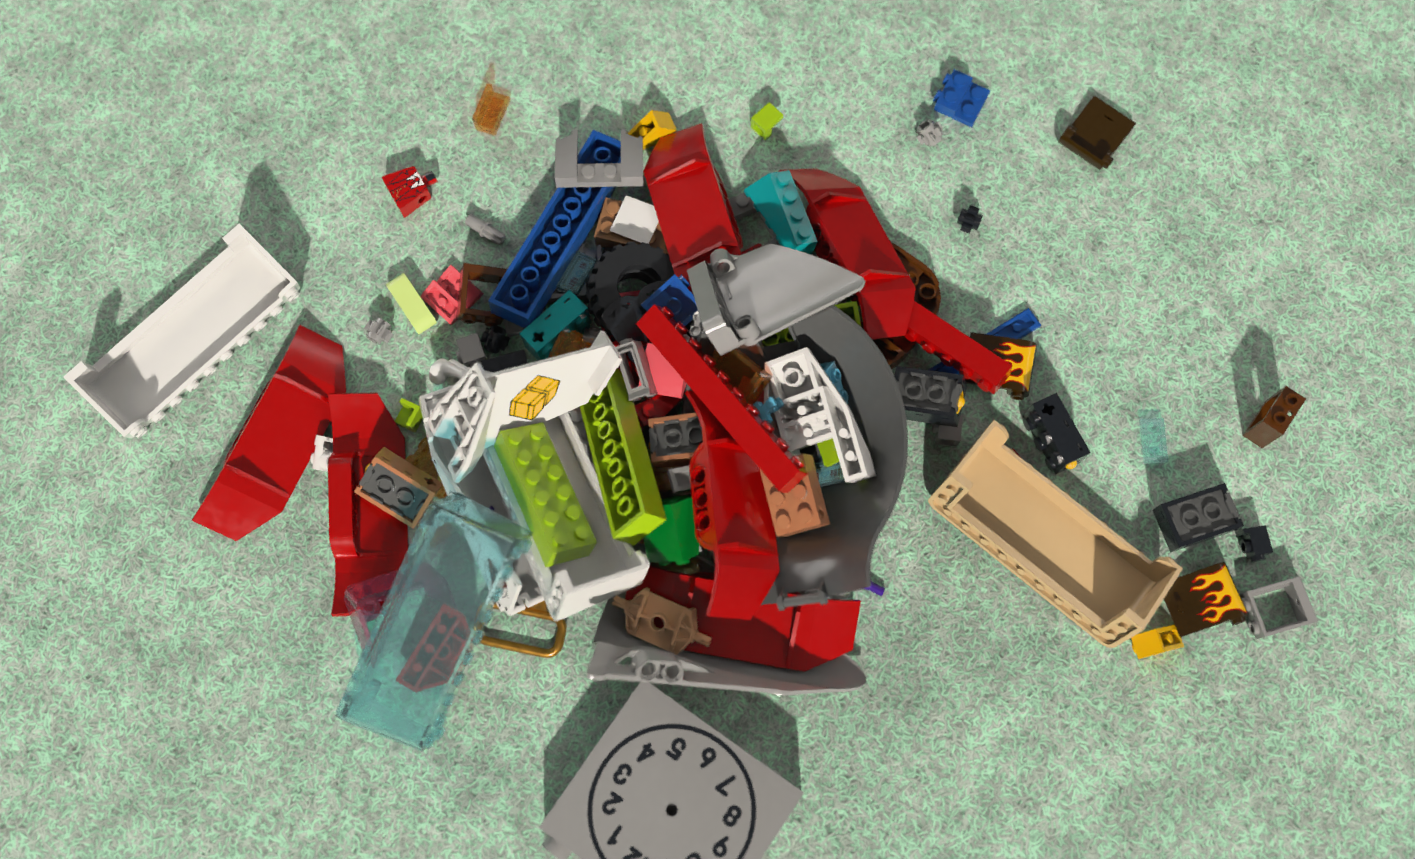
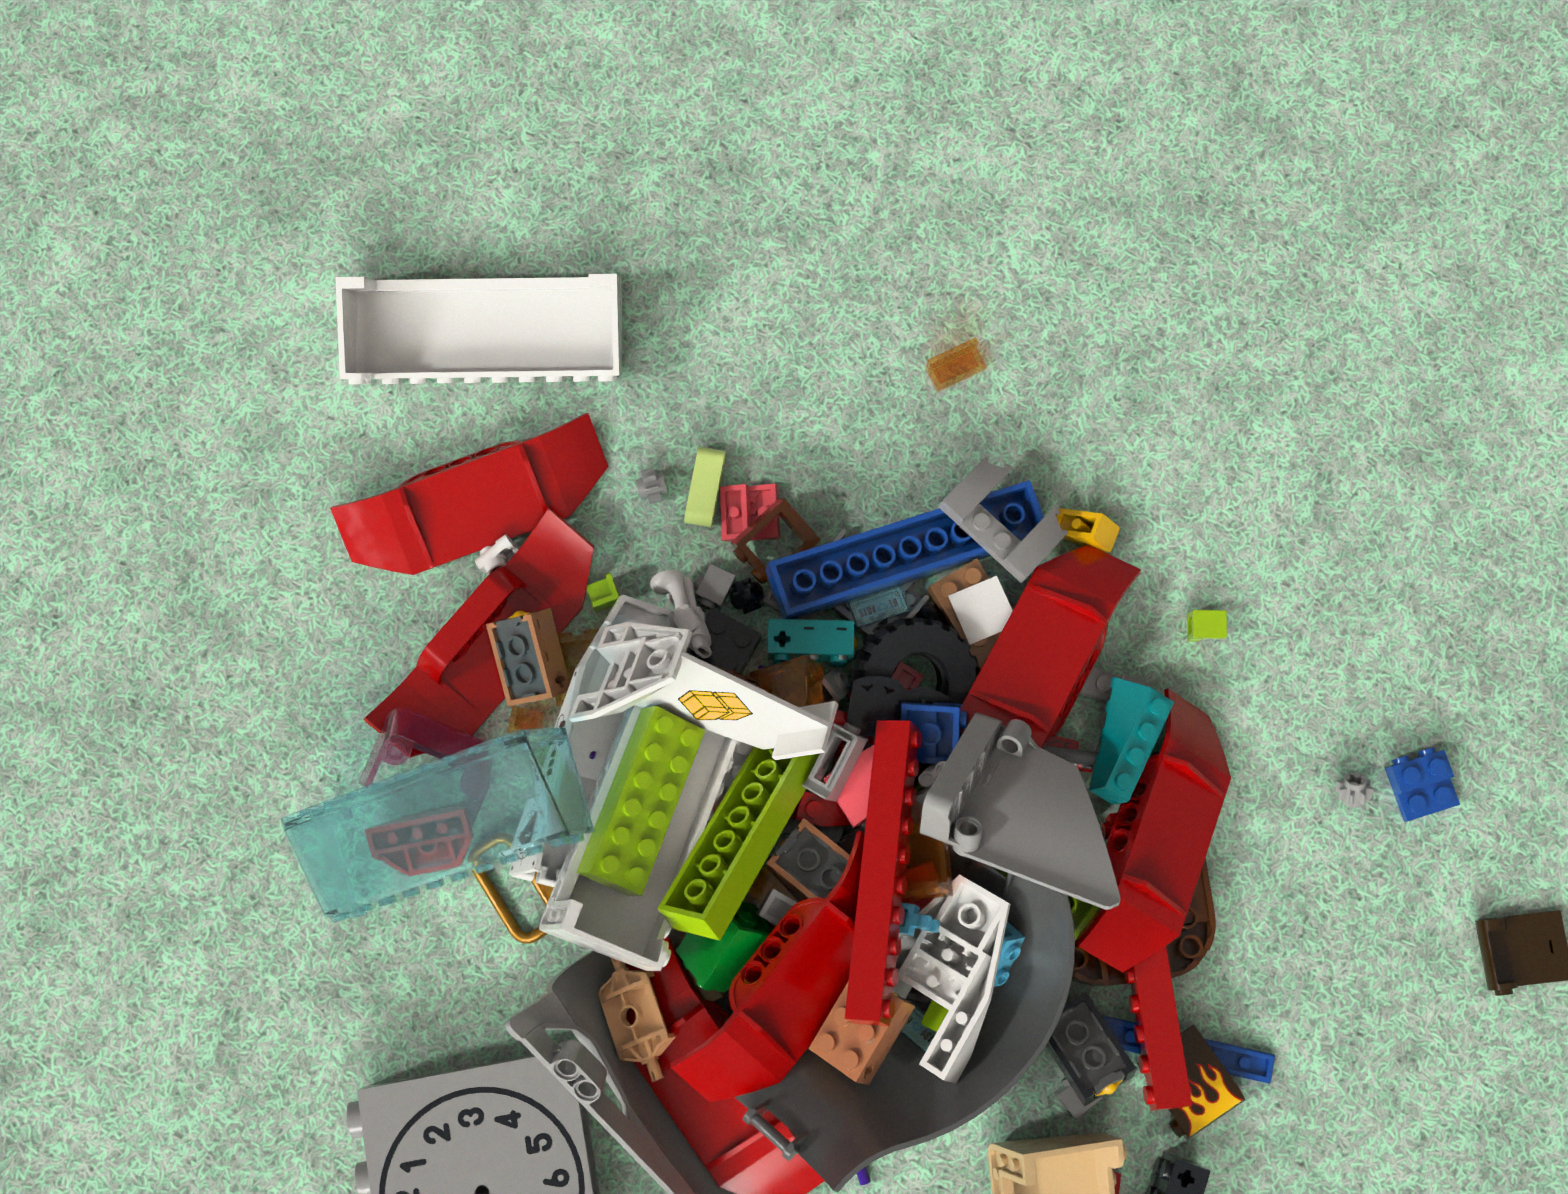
camera: 40 degrees right, 5 degrees up
(409, 188) = (807, 372): red torso -> none
(485, 229) = (839, 478): light grey axle -> none
(969, 219) = (1306, 913): black gear -> none

